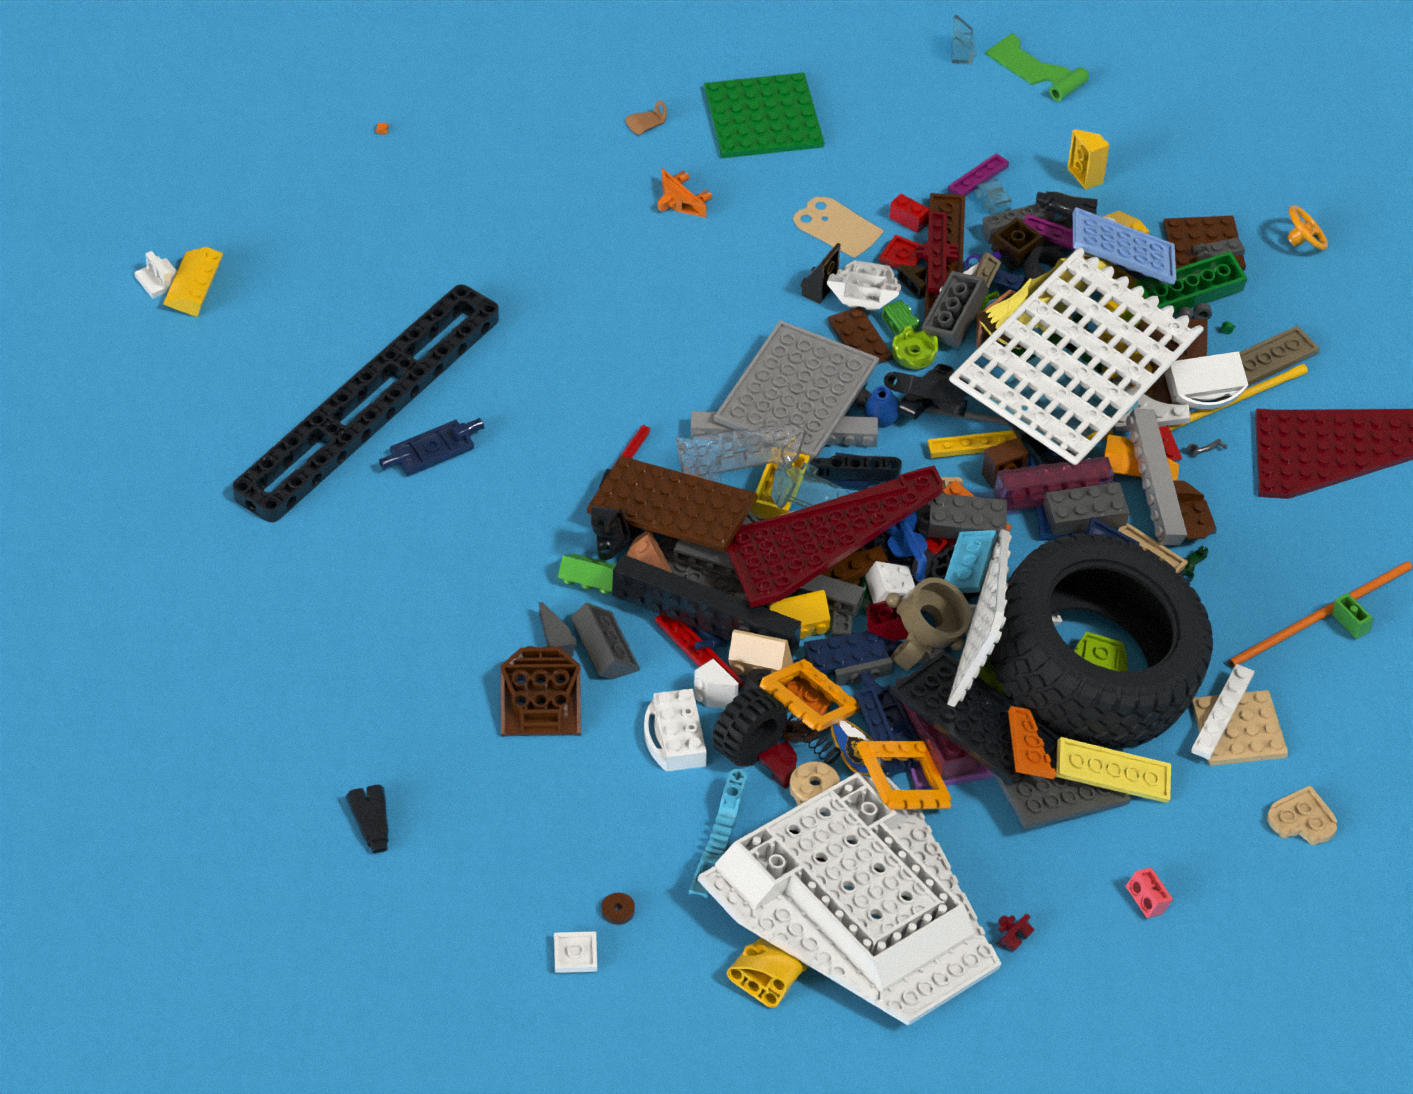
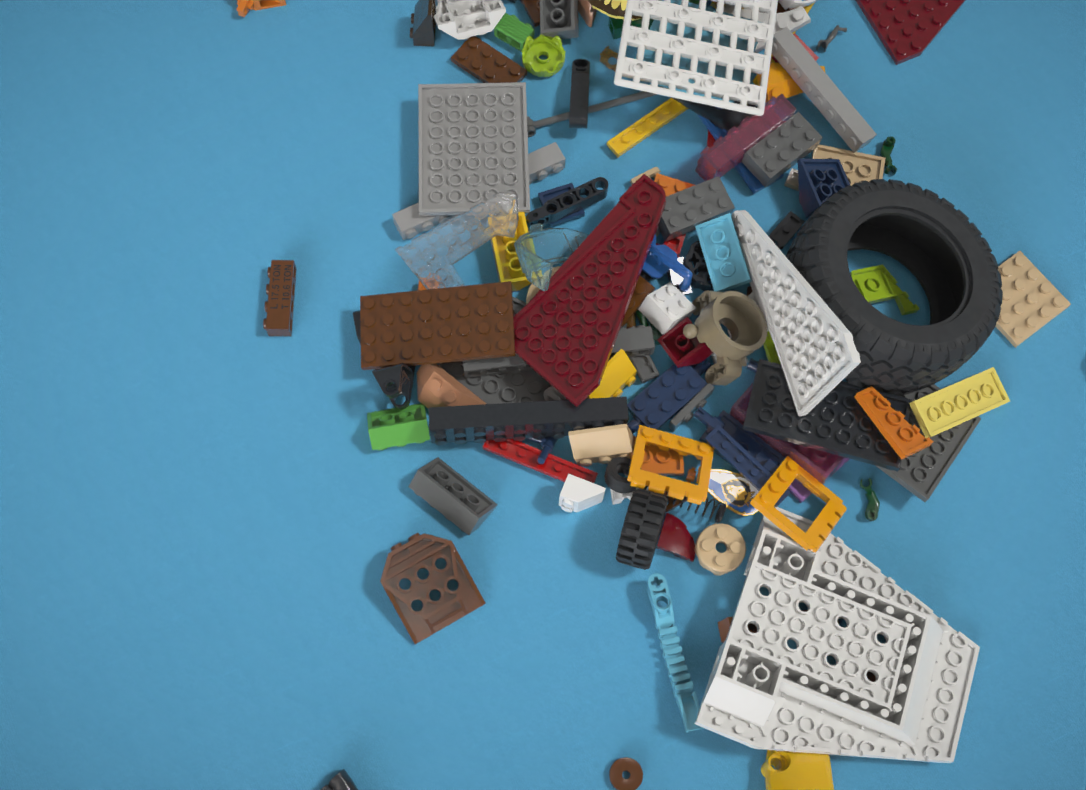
camera: 30 degrees left, 20 degrees up
(344, 440) = (70, 344): black beam -> none
(432, 446) = (176, 366): dark blue plate -> none
(553, 435) = (280, 298): none -> reddish brown brick
(555, 631) = (404, 510): dark grey slope -> none
(636, 442) = (358, 276): red axle -> none
(676, 731) = (569, 557): white piece -> none
(882, 404) = (547, 132): blue cone -> none
(942, 393) = (599, 92): black connector -> none
(982, 817) = (873, 503): none -> dark green arm
(1003, 456) = (687, 135): reddish brown brick -> none
(1010, 940) = (968, 605): dark red hips -> none
(1149, 892) = (1055, 507): coral brick -> none
(1194, 511) = (867, 108): reddish brown piece -> none
(1222, 711) = (1008, 320): white plate -> none
(1318, 615) = (1014, 151): orange piece -> none
(1352, 616) = (1043, 146): bright green brick -> none

